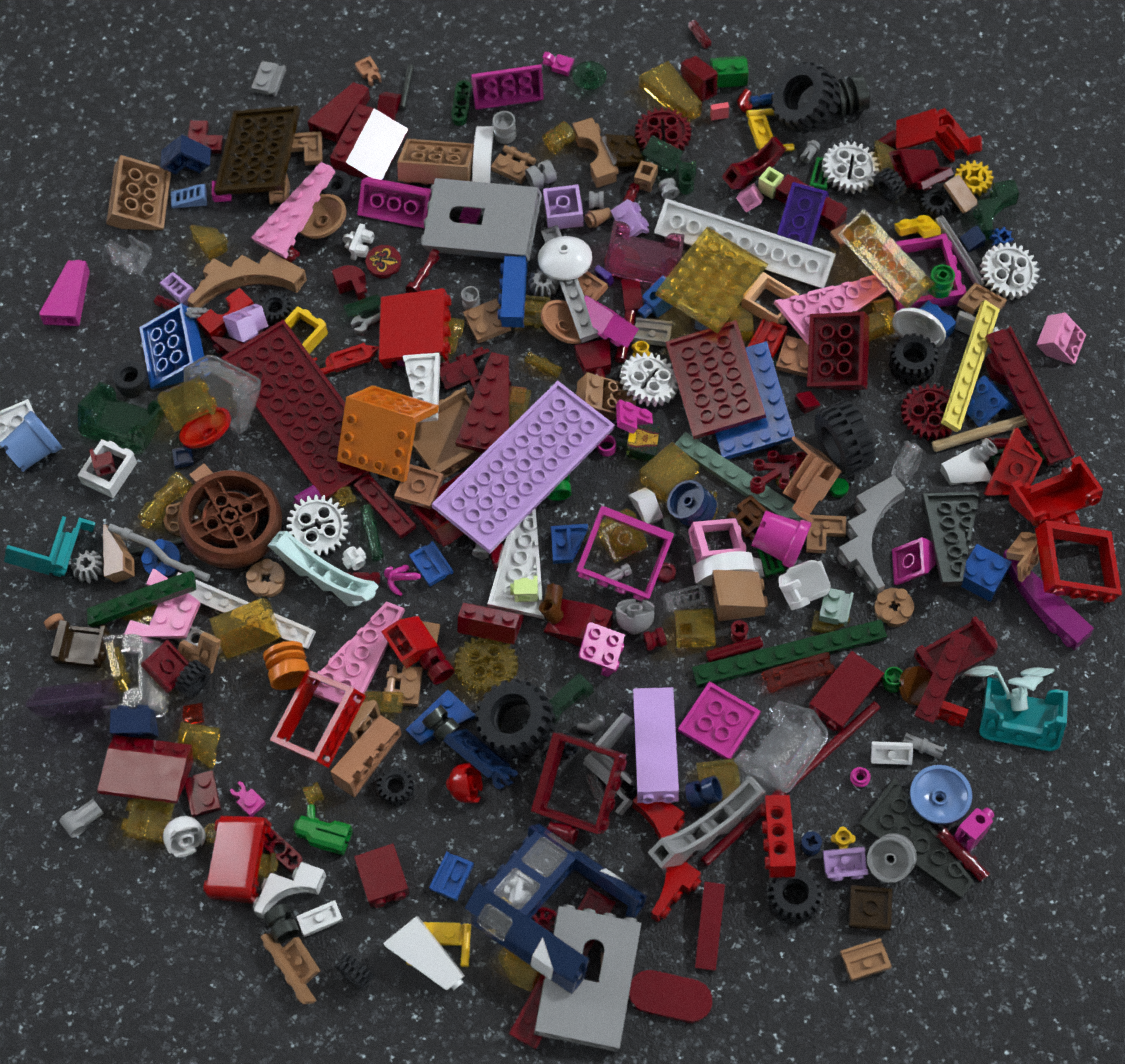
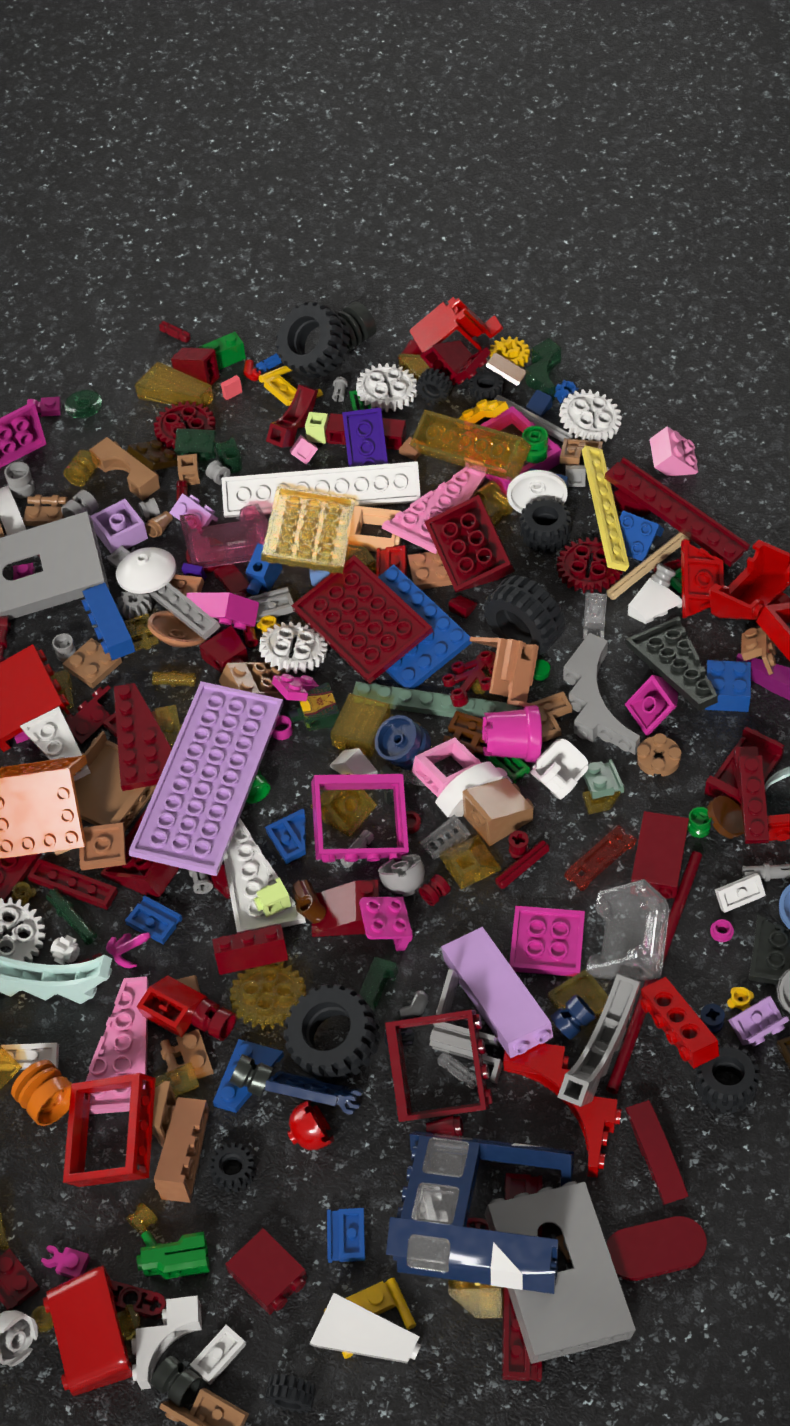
camera: 25 degrees left, 10 degrees down
(788, 653) = (577, 845): dark green plate -> none

